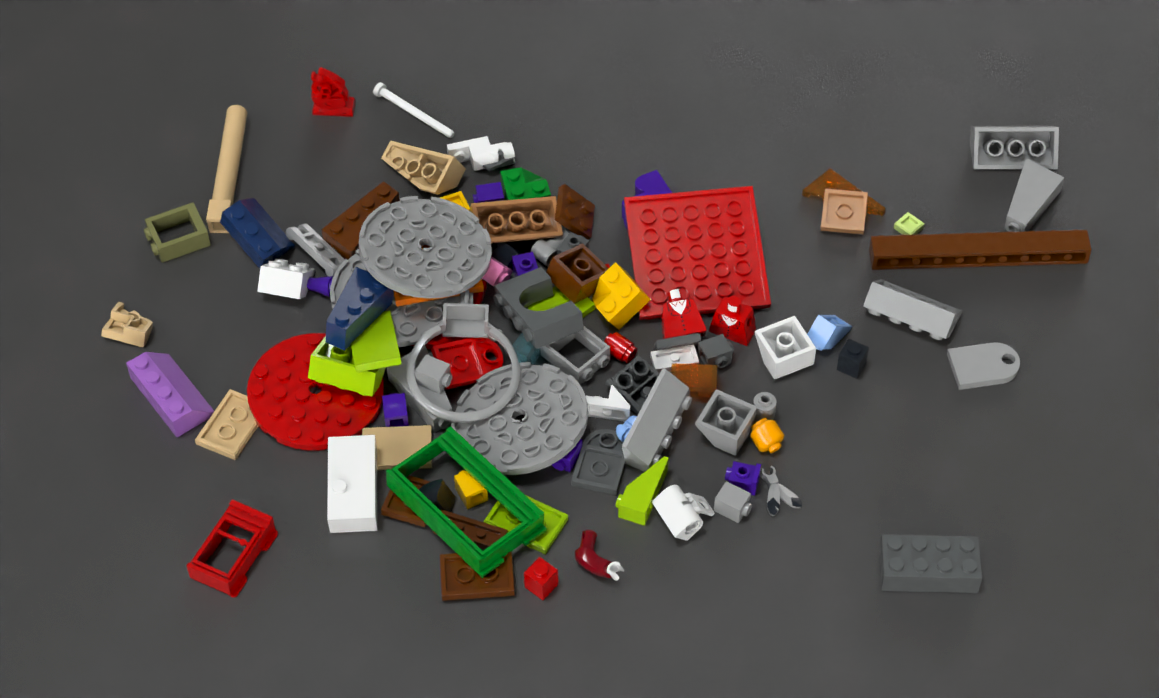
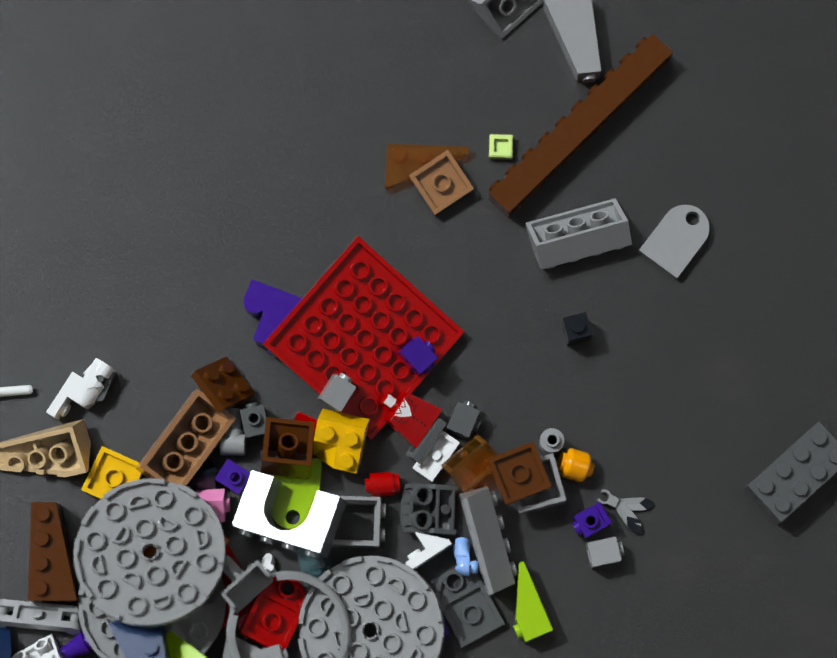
camera: 40 degrees left, 25 degrees up
(488, 193) = (132, 431): dark purple brick -> none
(523, 184) = (157, 396): green slope -> none
(644, 261) = (337, 391): none -> light grey brick
(681, 511) = (575, 600): white piece -> none
(719, 395) = (519, 473): none -> reddish brown plate
(722, 284) = (418, 355): none -> dark purple brick
(734, 320) = (451, 378): red torso -> none
(785, 347) = (516, 368): white slope -> none
(828, 331) = (533, 317): light blue slope -> none

